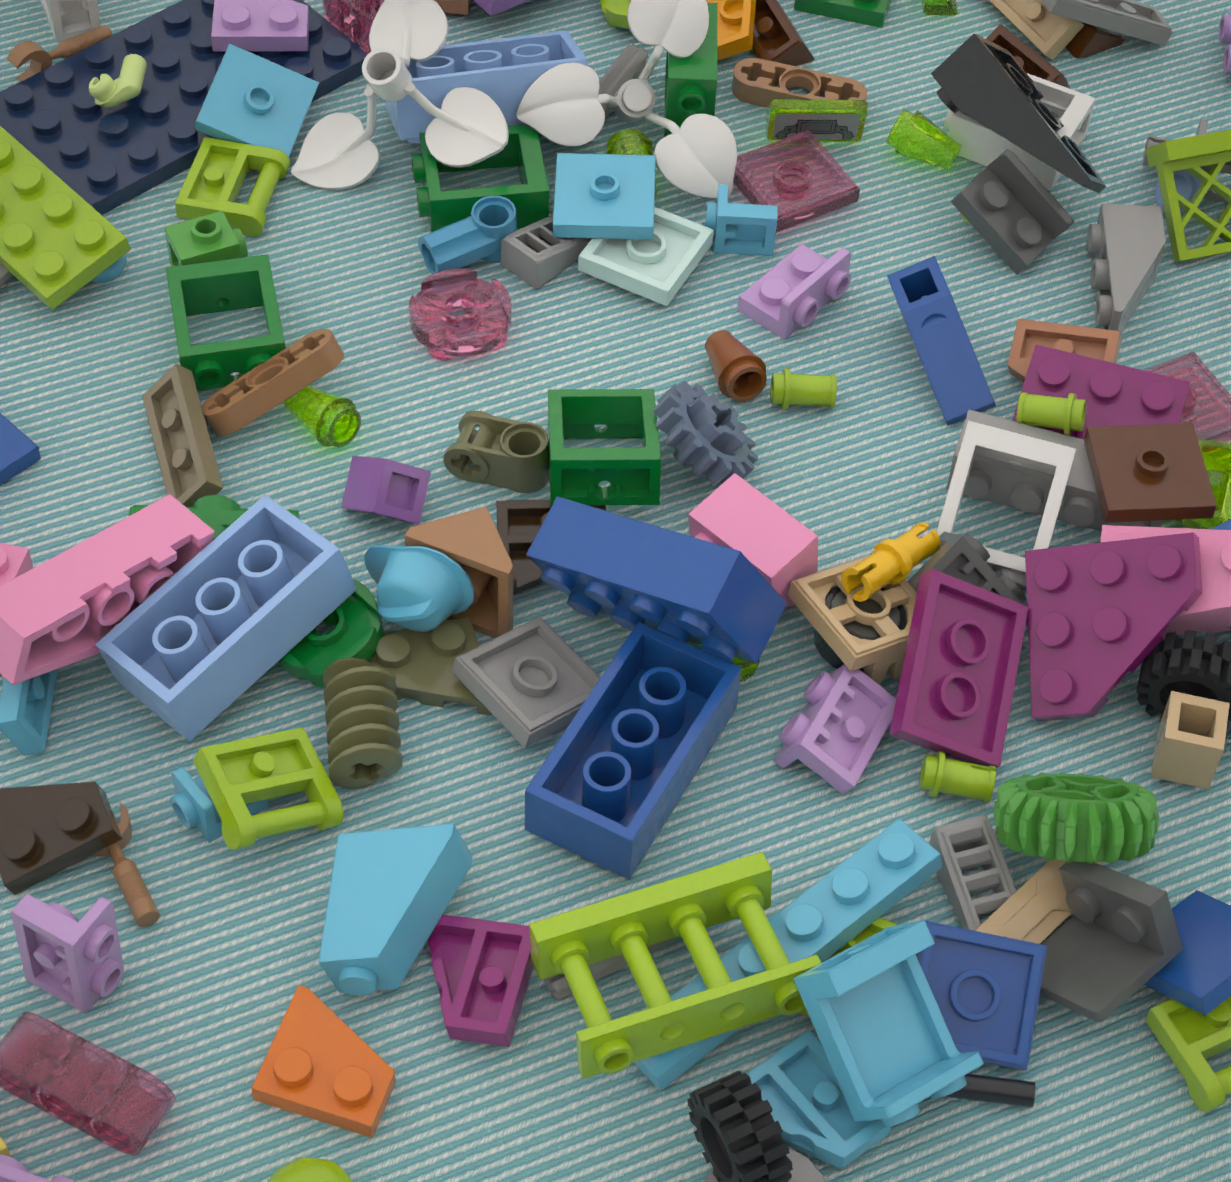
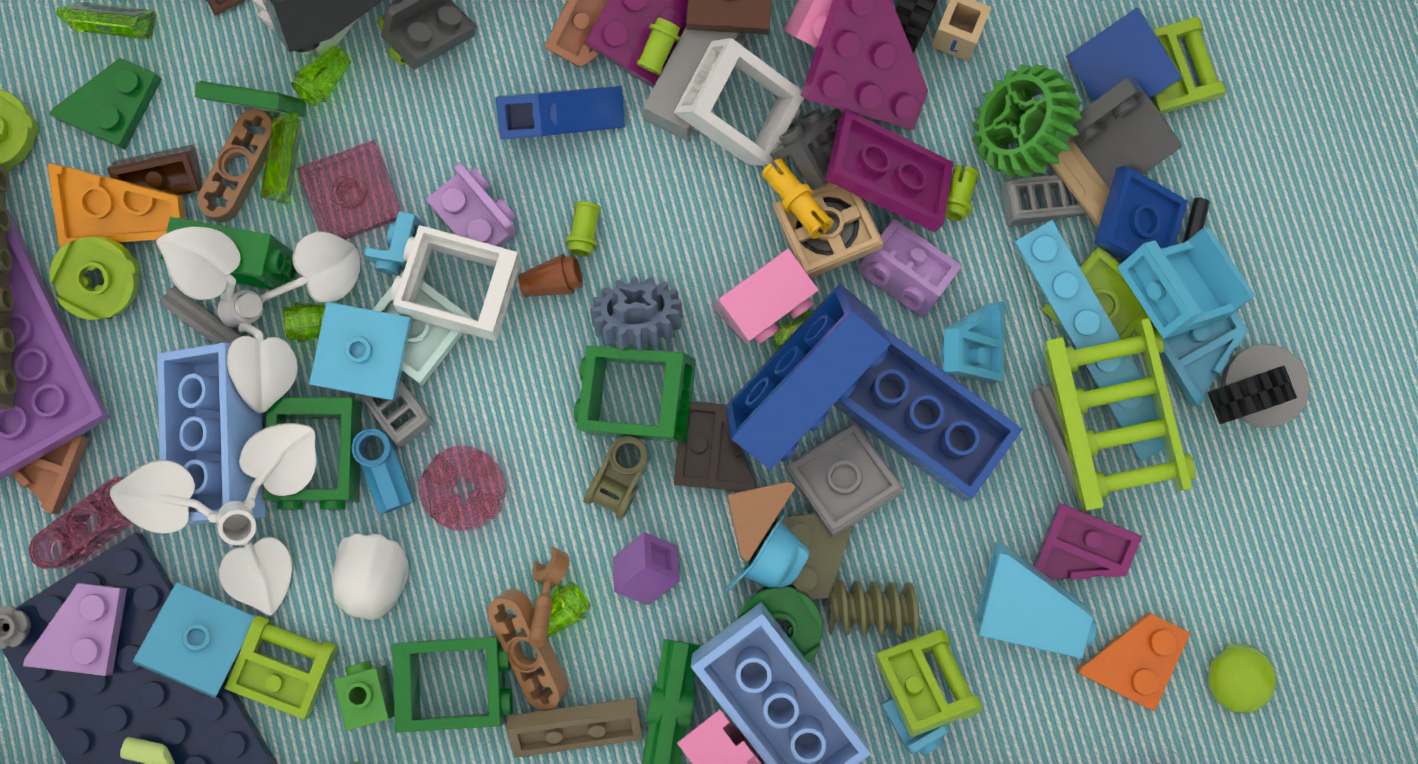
camera: 75 degrees left, 30 degrees up
(343, 241) = (368, 575): none -> white hair
(363, 393) = (550, 577): none -> medium nougat piece
(698, 297) = (497, 299): none -> white window
(743, 801) = (976, 345): none -> medium azure wing
(874, 73) = (249, 98): none -> green tile

